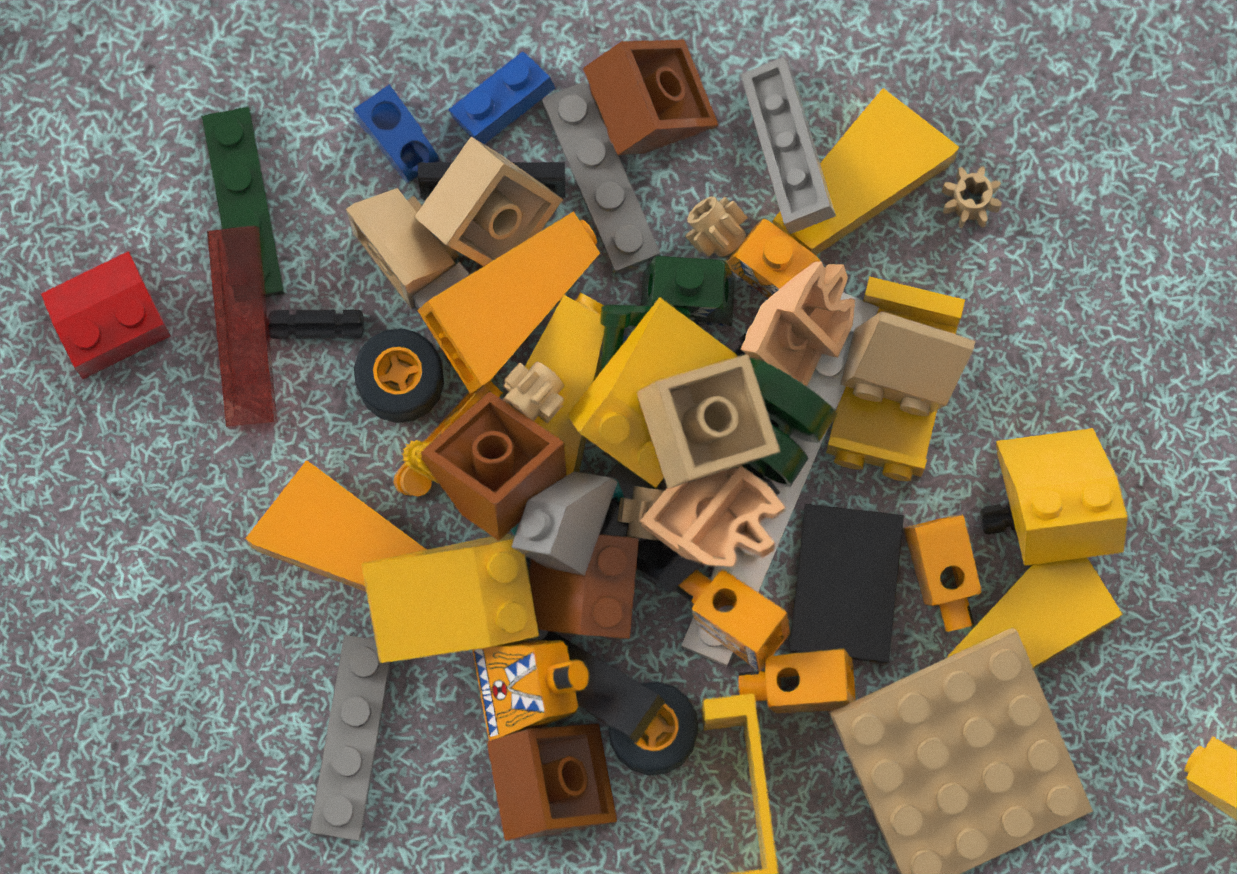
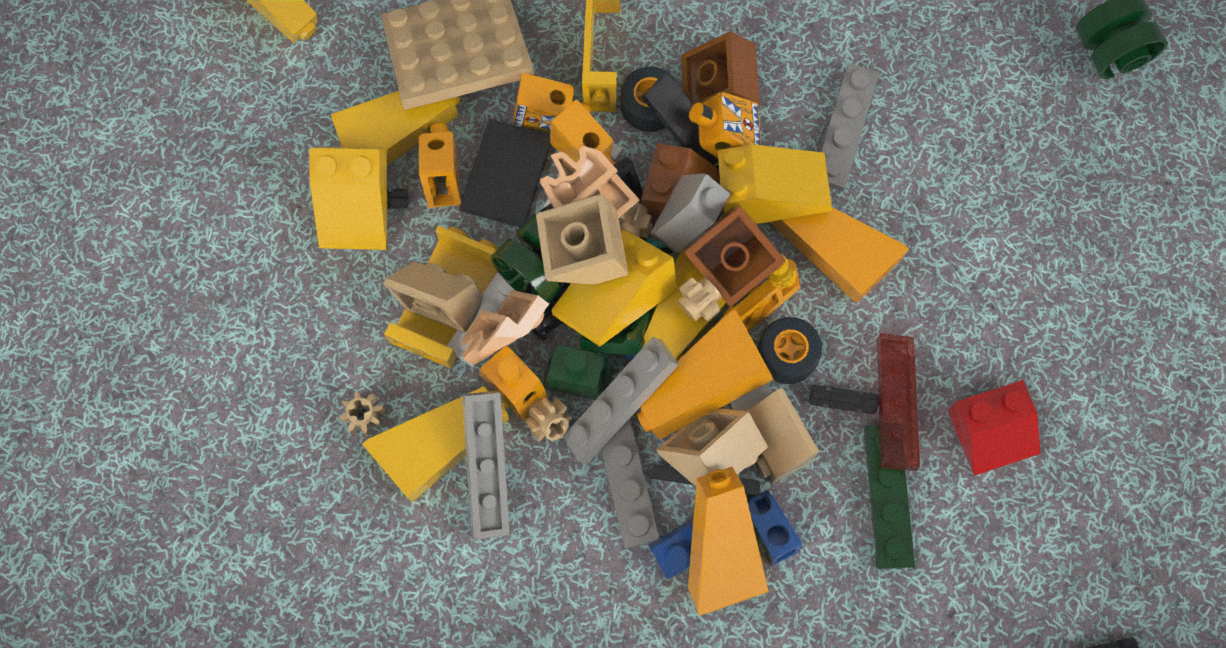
camera: 170 degrees left, 5 degrees down
(456, 81) = (723, 545): none -> light orange slope
(620, 251) = (620, 400): none -> light grey plate
(649, 95) = (578, 526): dark orange slope -> none

